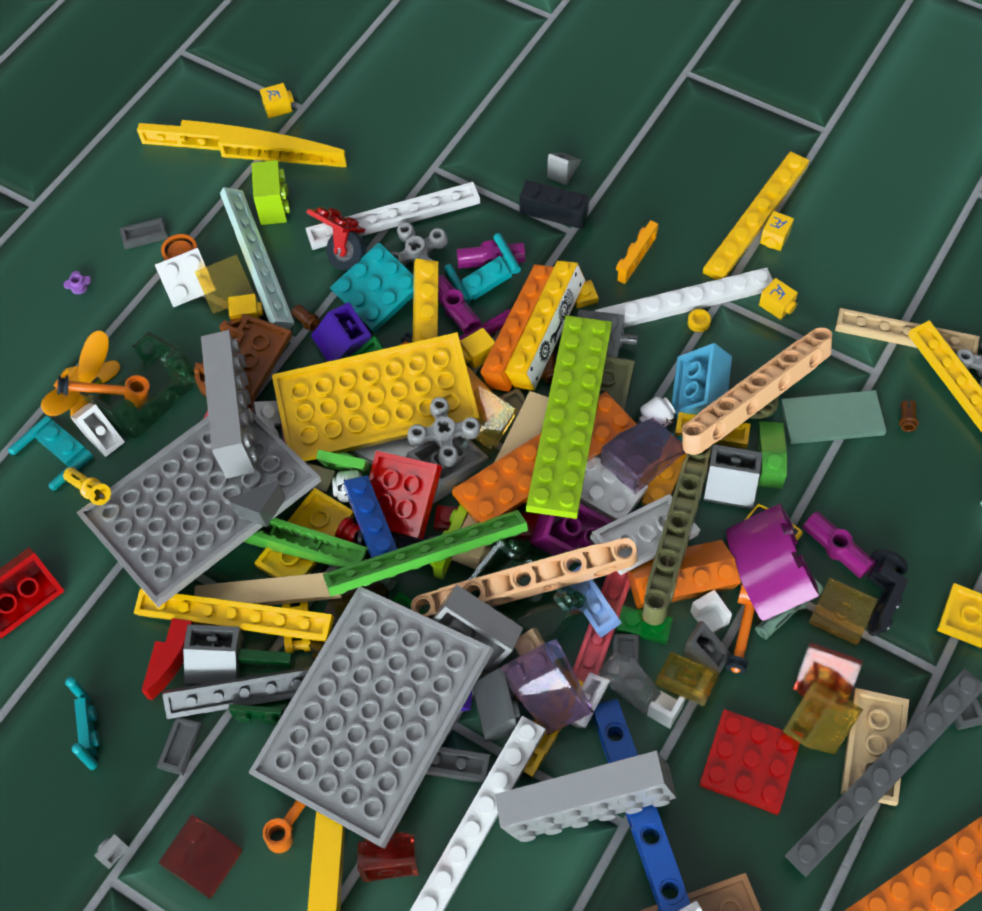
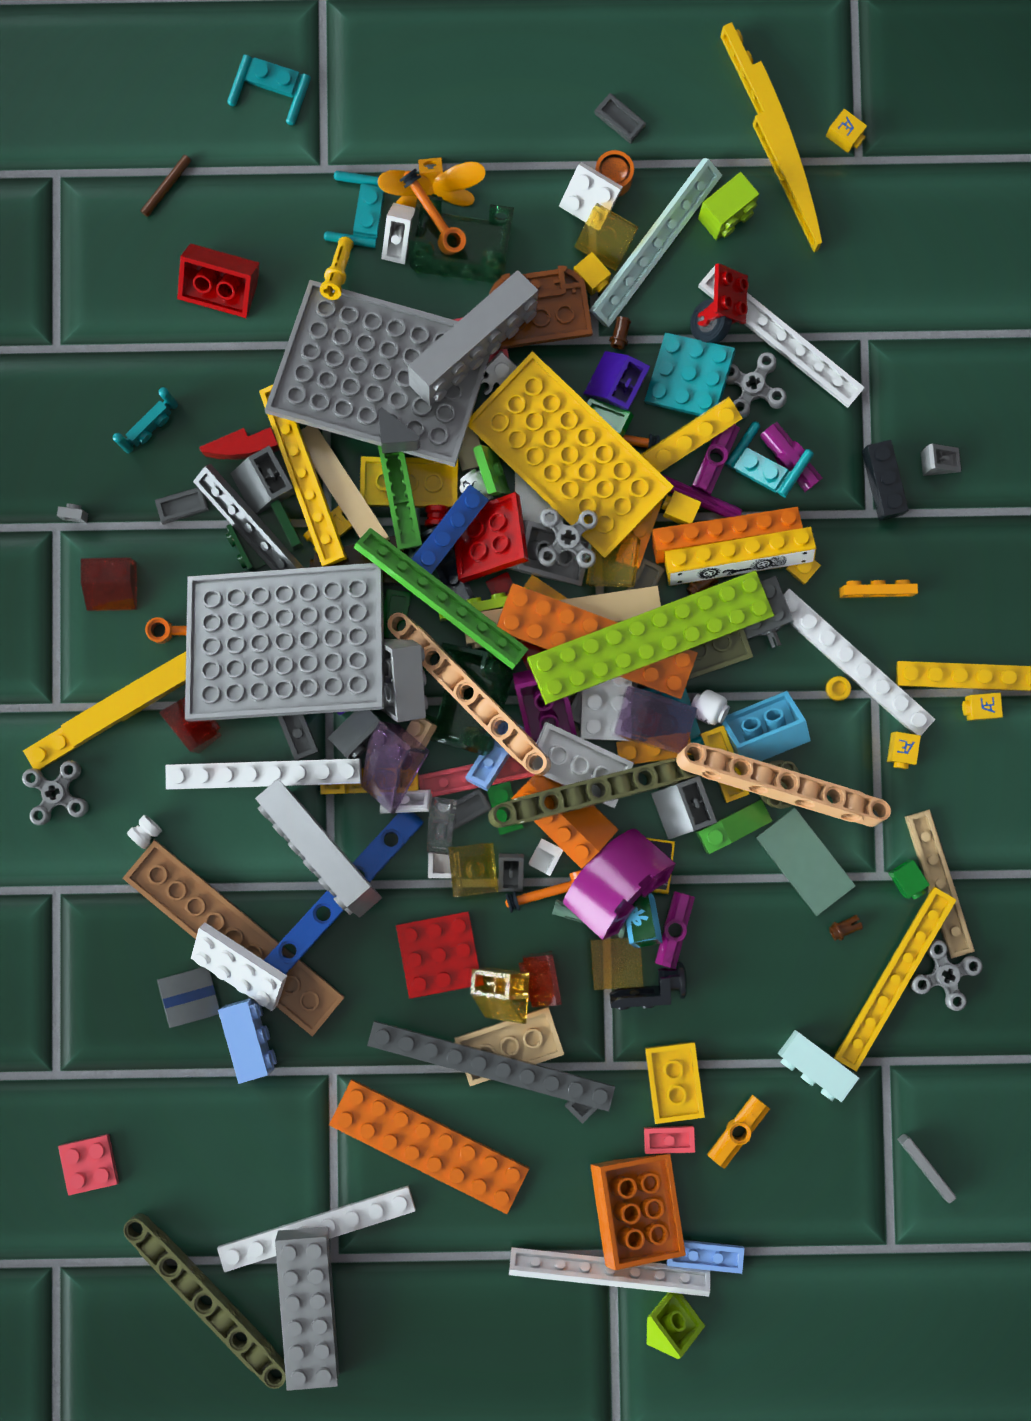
camera: 55 degrees right, 25 degrees up
(77, 283) = (529, 106): medium lavender plate -> none
(822, 561) = (643, 923): none -> piece
(891, 349) = (909, 879): none -> green brick

